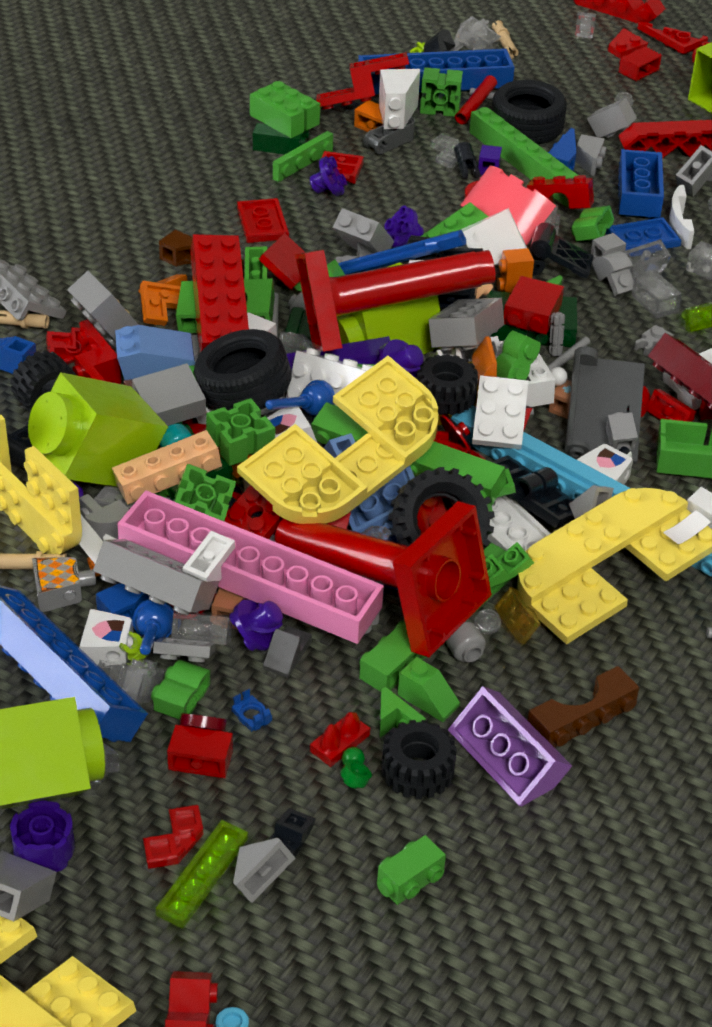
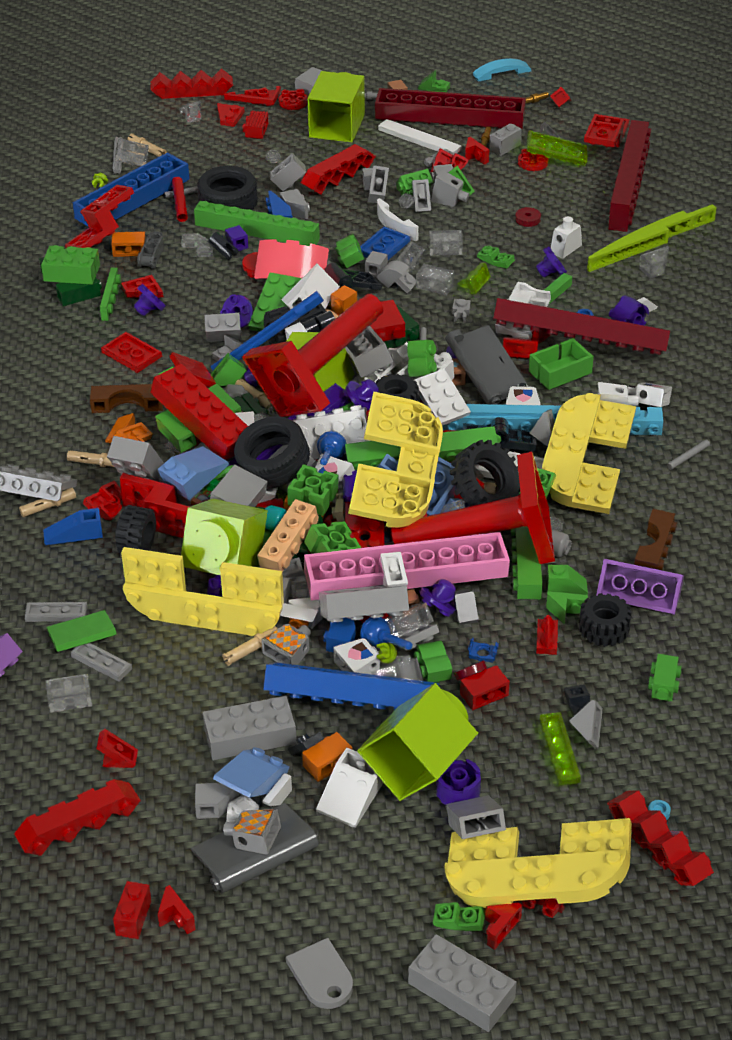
camera: 35 degrees left, 0 degrees up
(173, 847) = (525, 745): red tile -> none
(354, 771) = (577, 648): green plate -> none
(398, 96) = (141, 221): white slope -> none
(440, 42) = (112, 169): black brick -> none
(441, 91) = (155, 204): bright green brick -> none
(485, 359) = (403, 367): orange slope -> none
(517, 616) = (569, 512): clear yellow slope -> none
(556, 334) = (409, 330): light grey axle -> none
(577, 189) = (323, 231): red arch -> none
(621, 430) = (512, 373): light grey brick -> none
(640, 183) = (350, 209): blue brick -> none
(688, 527) = (614, 409): white sticker -> none

